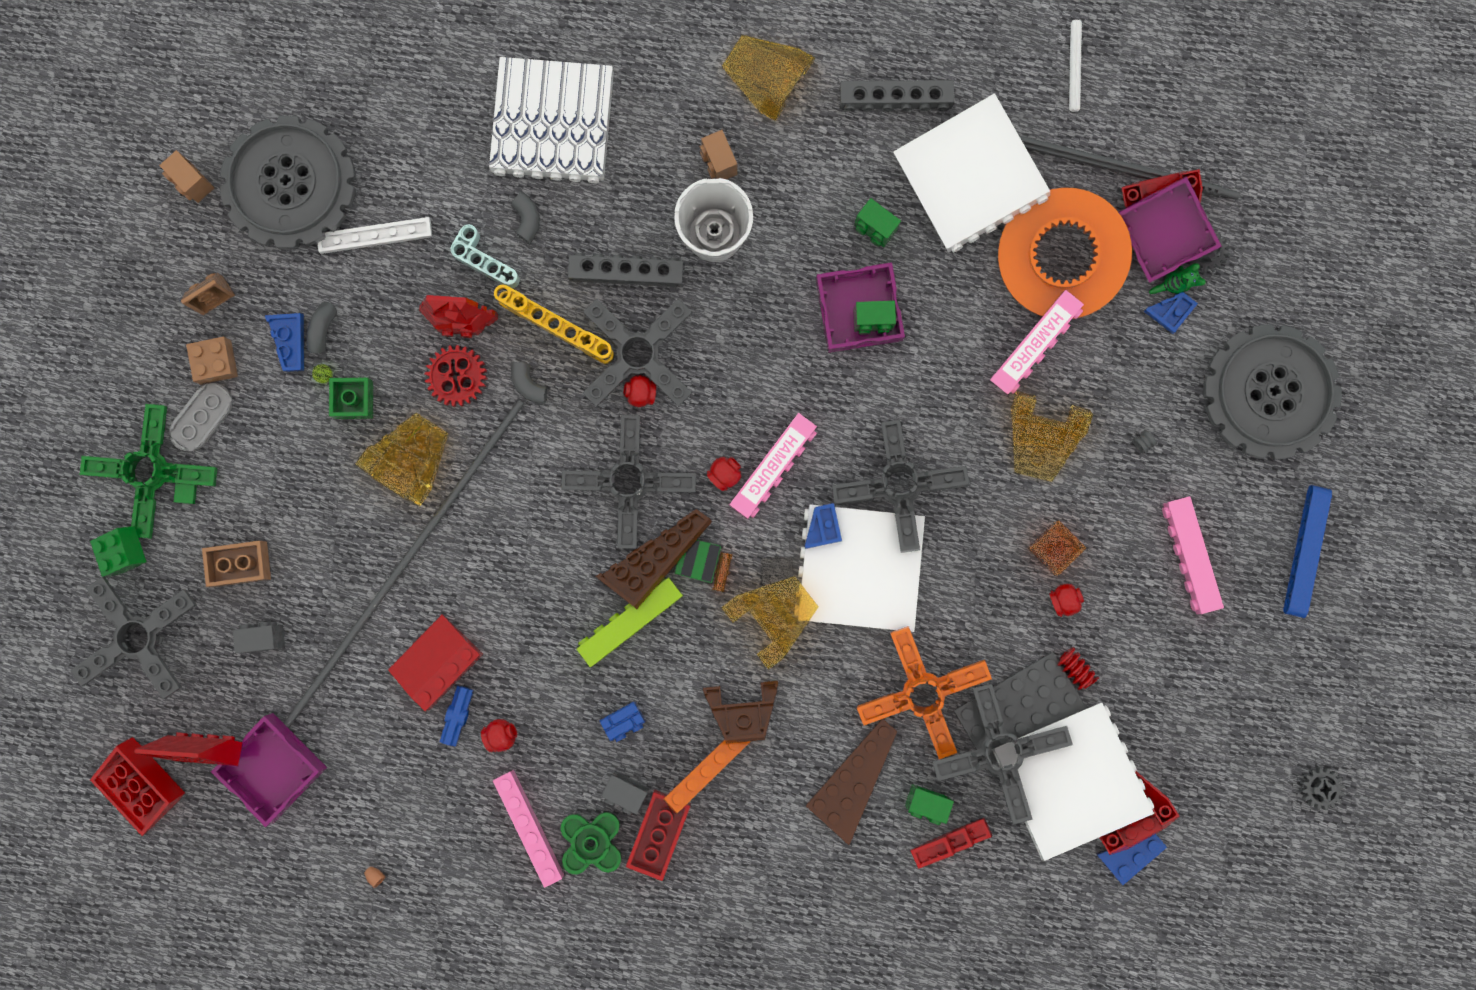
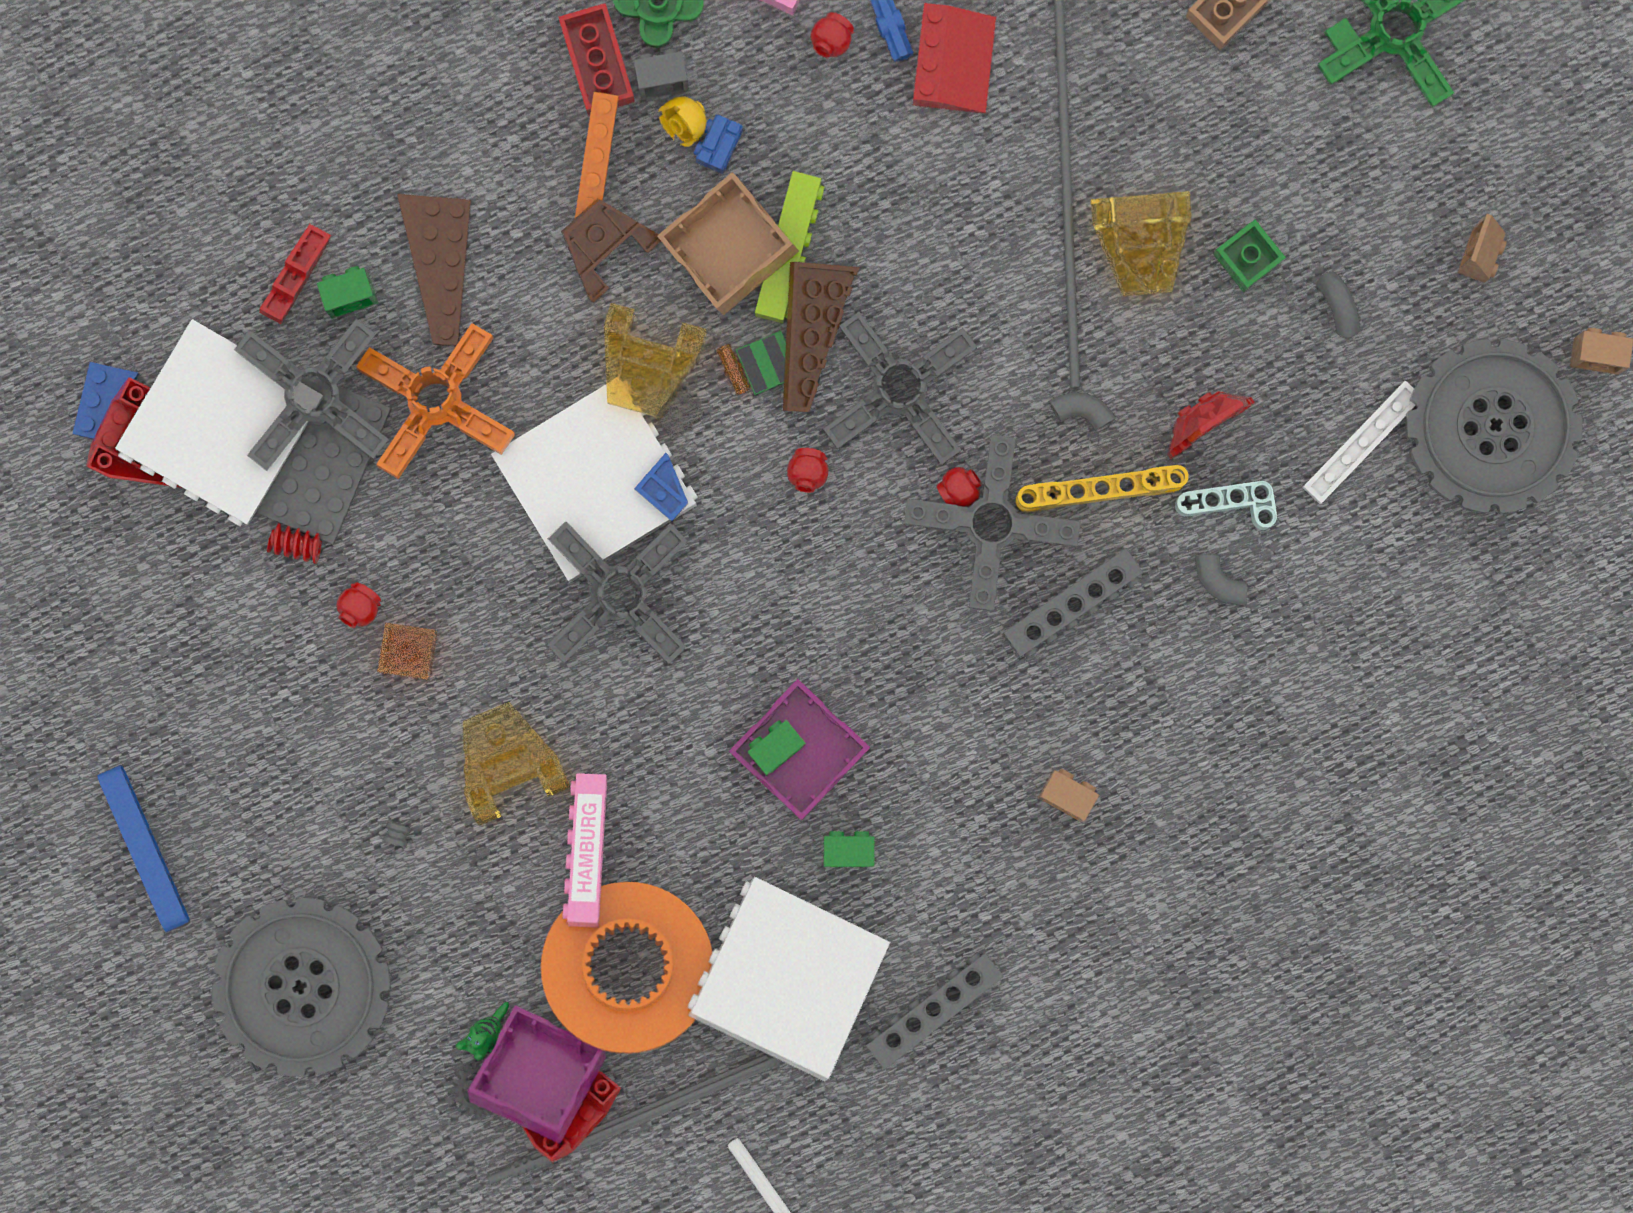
camera: 140 degrees right, 0 degrees up
(201, 417) = (1389, 123): light grey tile -> none
(212, 360) = (1422, 187): medium nougat brick -> none
(289, 339) = (1363, 269): blue wing -> none
(322, 373) = (1301, 260): clear neon green tile -> none
(439, 380) = (1147, 377): red gear -> none
(551, 119) = (1275, 704): white panel -> none
(632, 753) = (684, 118): none -> yellow cylinder
(666, 651) = (728, 243): none -> medium nougat tile
(713, 206) = (1033, 695): white cone -> none
(766, 72) = (1090, 931): clear yellow wedge -> none
(772, 466) = (763, 515): bright pink brick -> none
(1172, 311) = (468, 998): blue wing -> none
(1192, 555) = (259, 752): bright pink brick -> none

